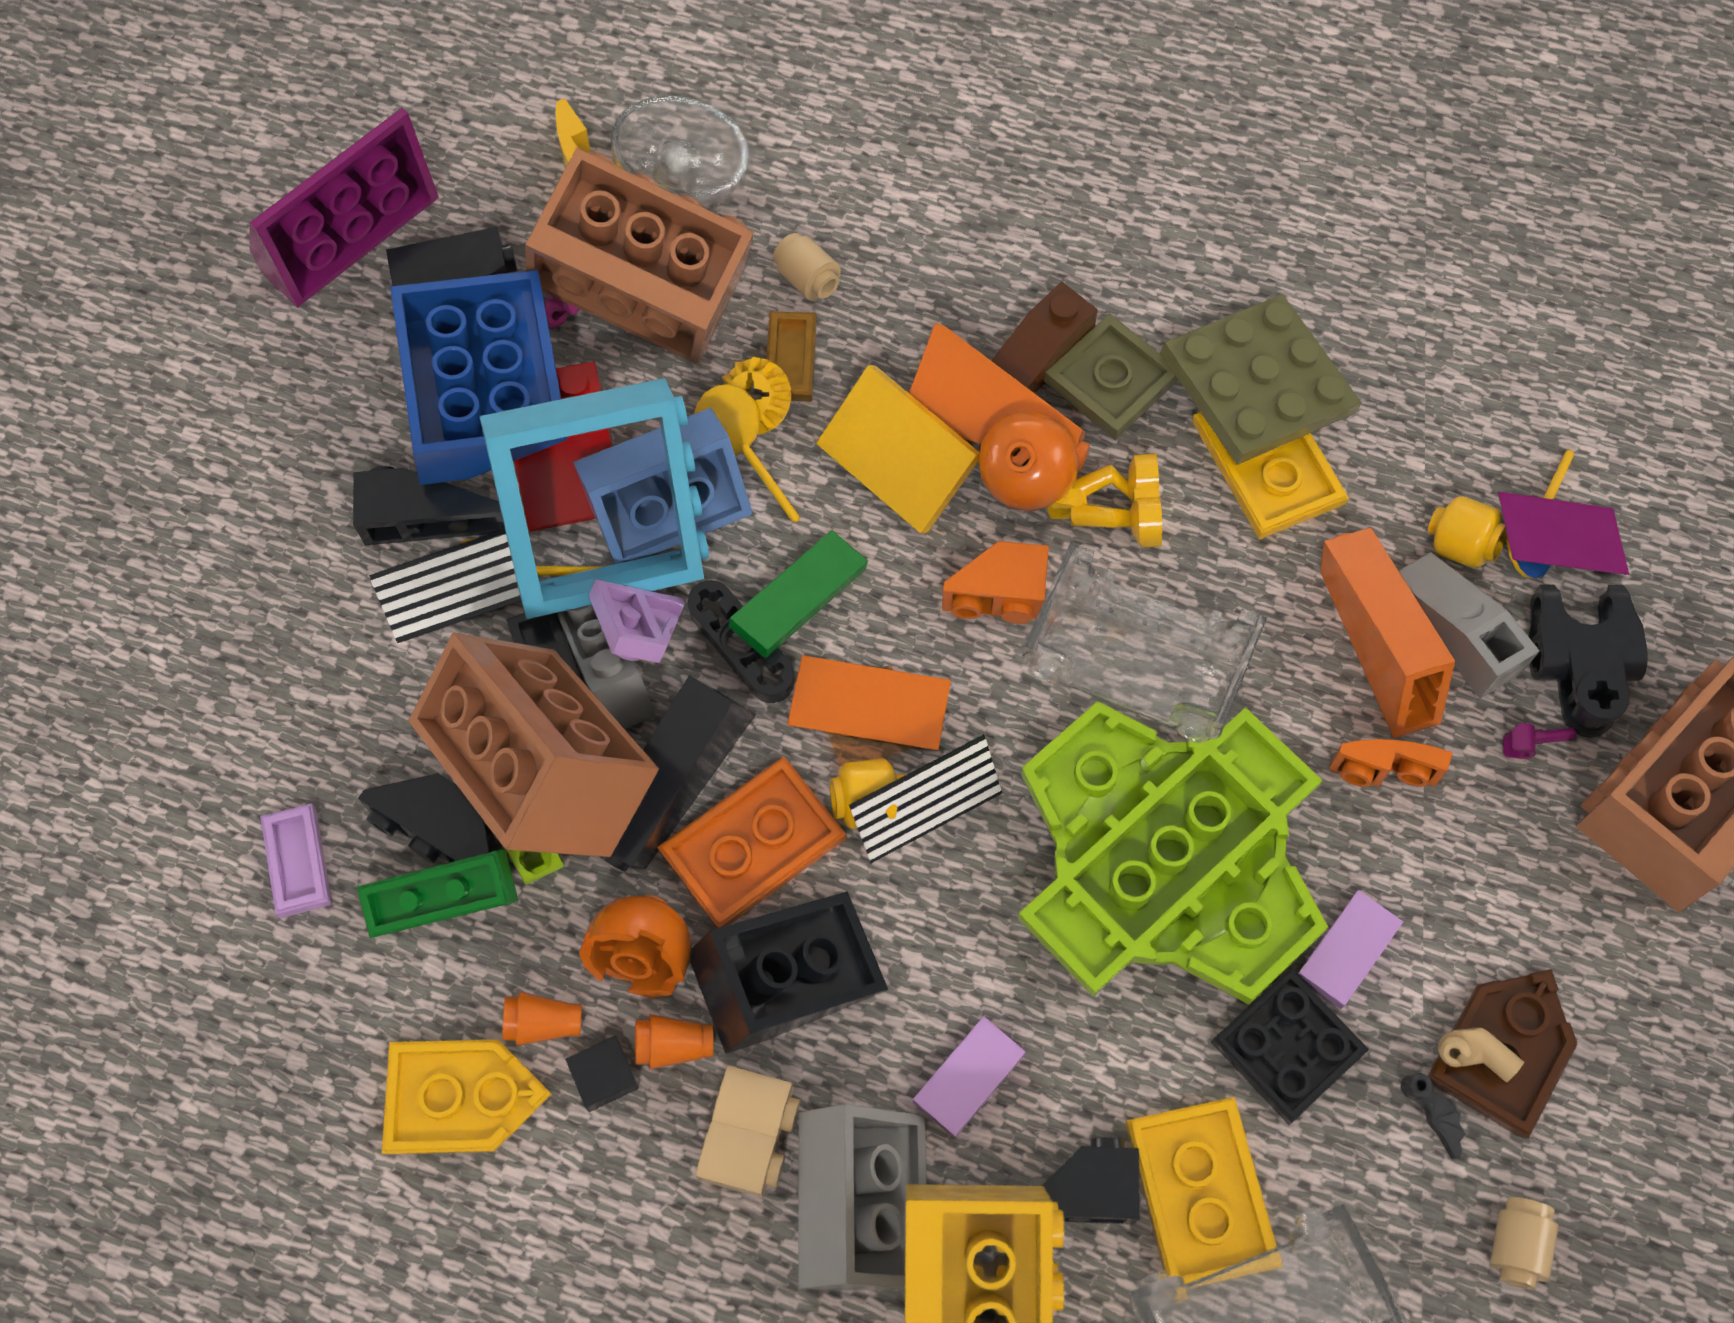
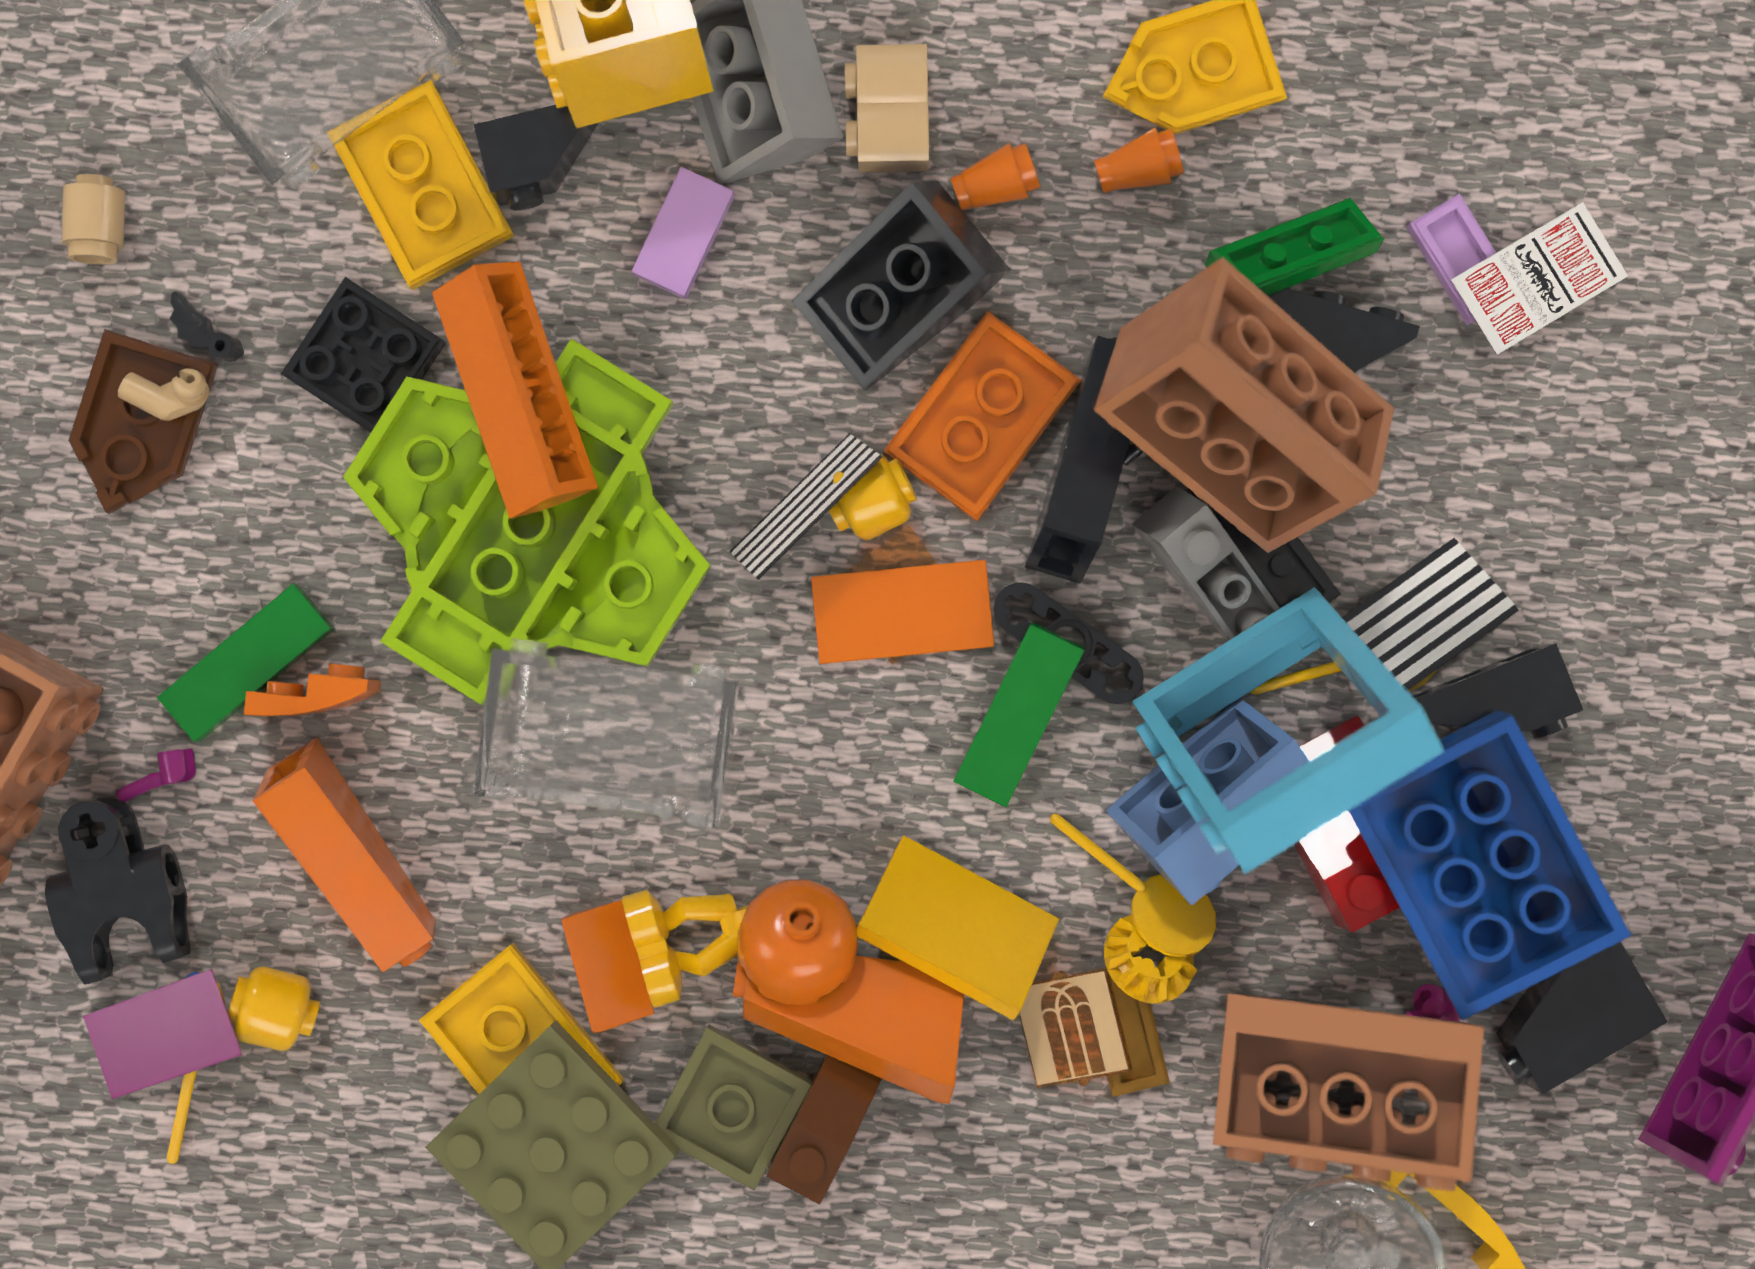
camera: 160 degrees right, 20 degrees up
(239, 824) = (1539, 278): none -> white sticker
(602, 1073) = (1058, 129): black tile -> none
(635, 619) = (1187, 613): lavender wing -> none
(639, 943) = (1062, 265): orange cylinder -> none
(807, 266) = (1143, 1157): tan brick -> none
(827, 362) = (1074, 1029): none -> piece
(1000, 582) = (789, 796): orange slope -> none
(1156, 953) = (514, 388): none -> orange brick
(1187, 499) = (607, 966): none -> orange slope
(1349, 949) = (315, 482): lavender tile -> none
(1444, 810) = (245, 662): none -> green tile
(1474, 627) = (258, 888): light grey slope -> none

